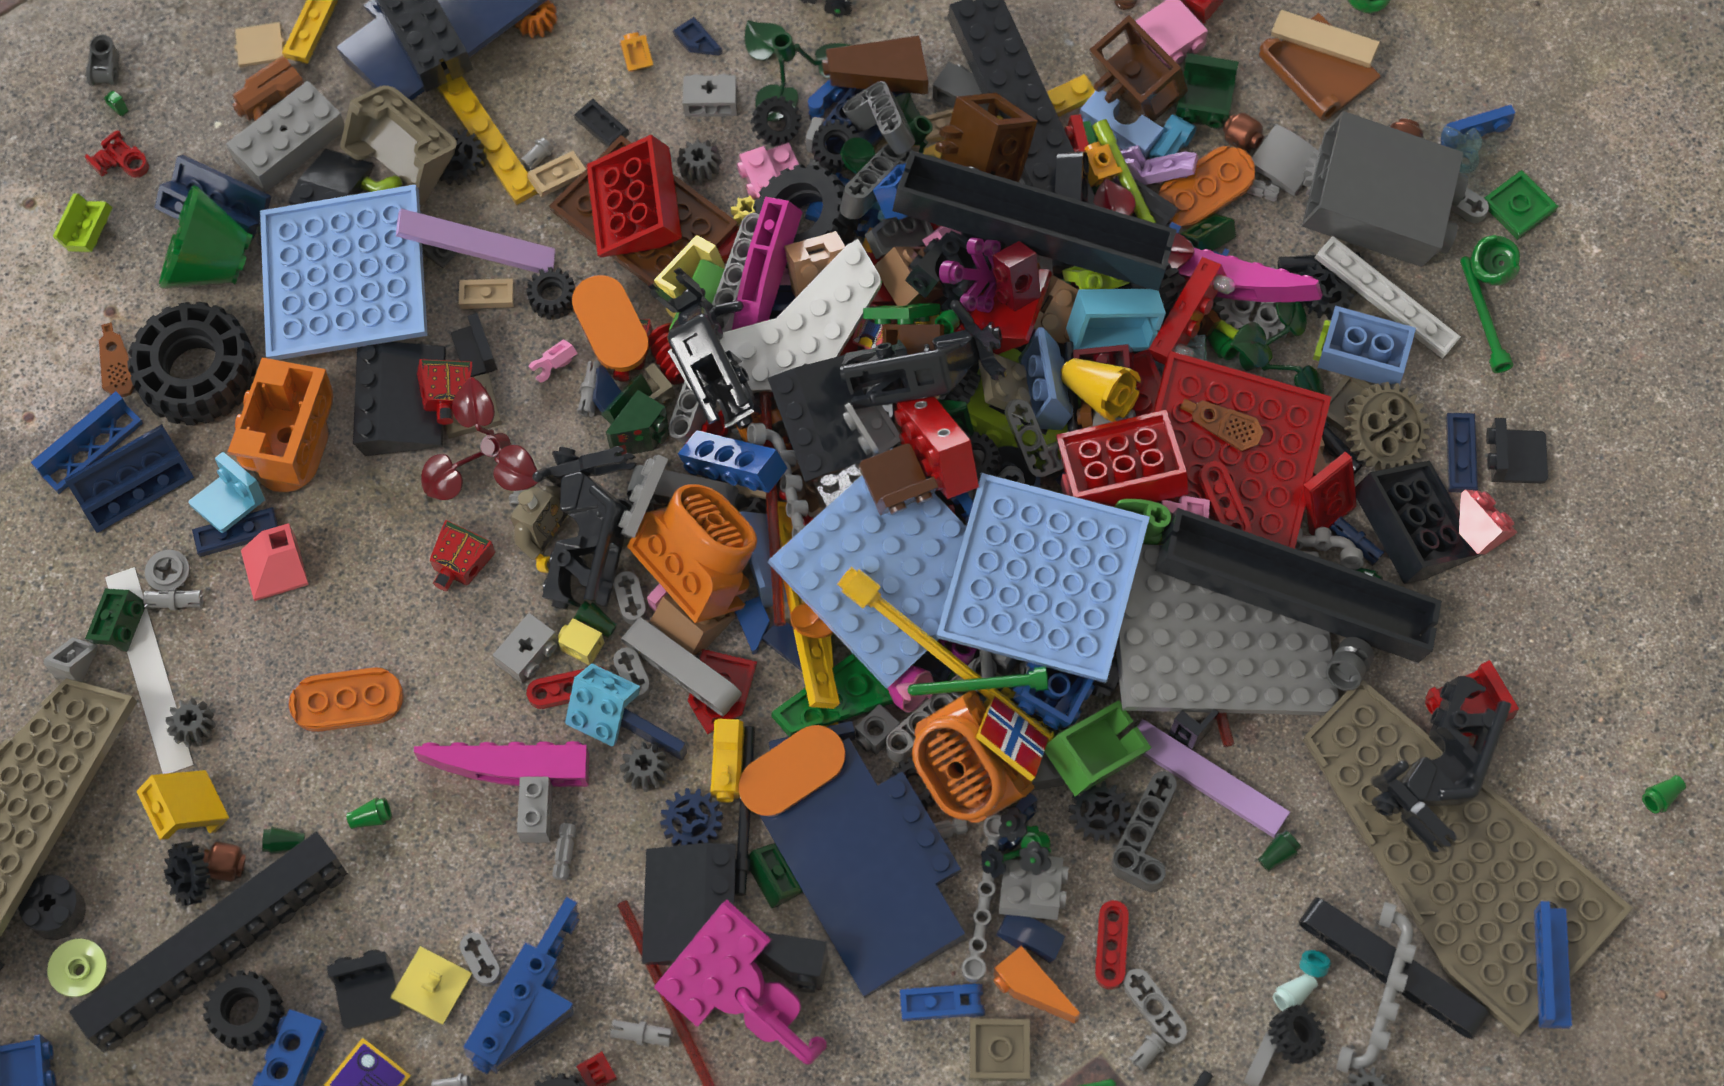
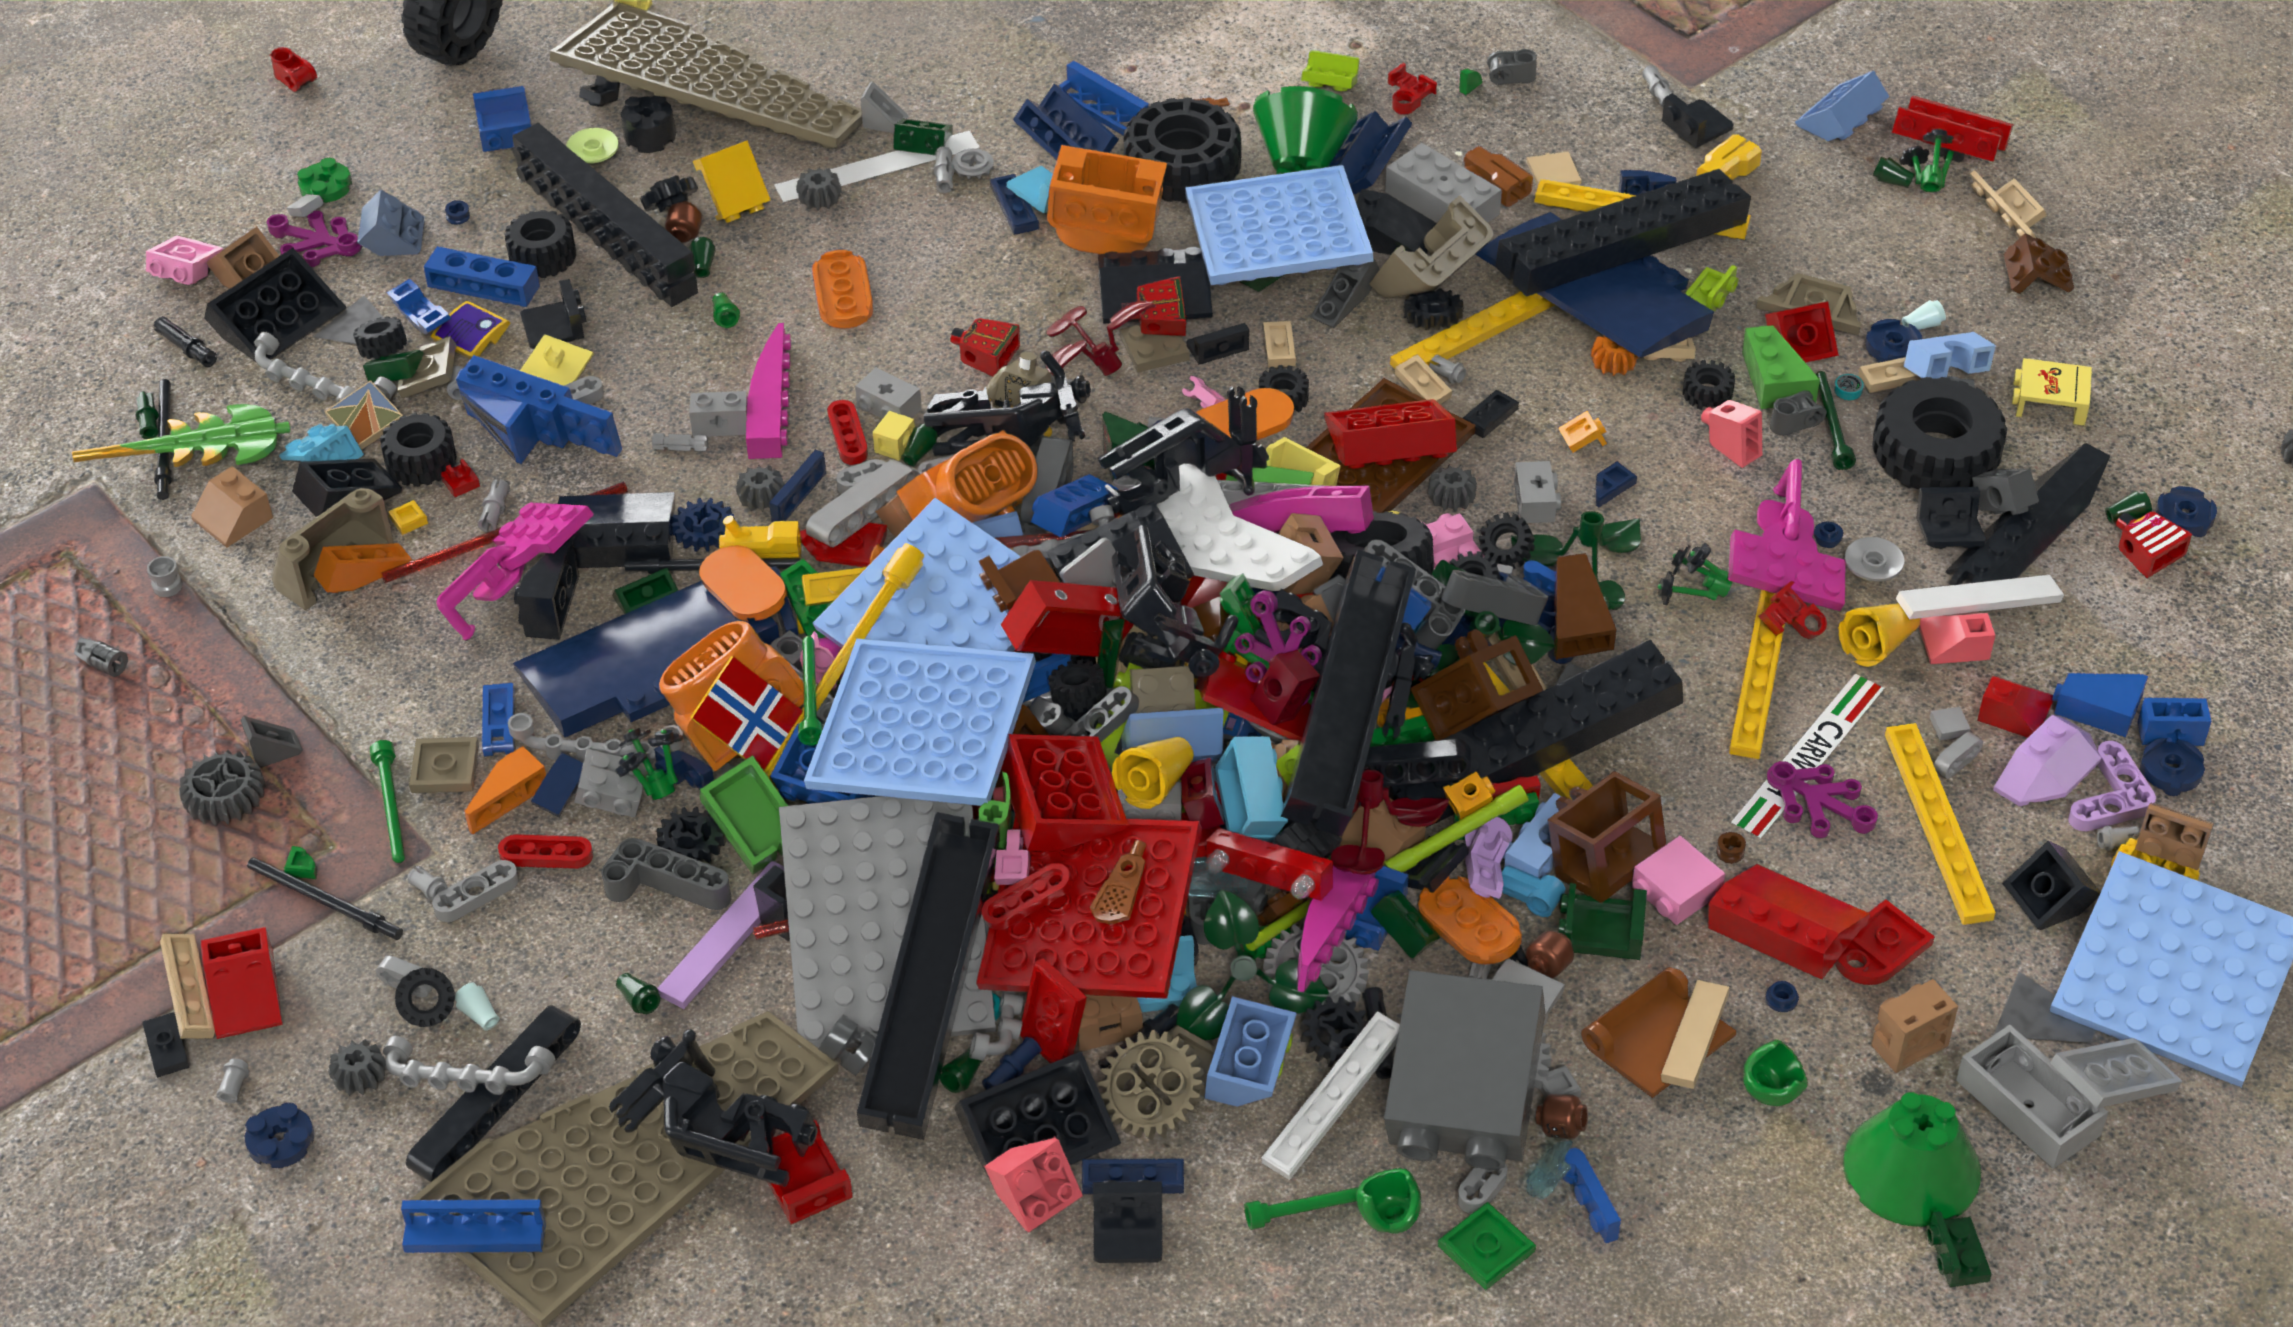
camera: 85 degrees right, 20 degrees down
(274, 562) = (979, 227): coral slope -> none
(474, 241) = (1322, 314): lavender tile -> none
(599, 703) = (830, 445): medium azure bracket -> none
(642, 495) = (1035, 427): light grey plate -> none
(1315, 963) = (506, 1023): teal tile -> none

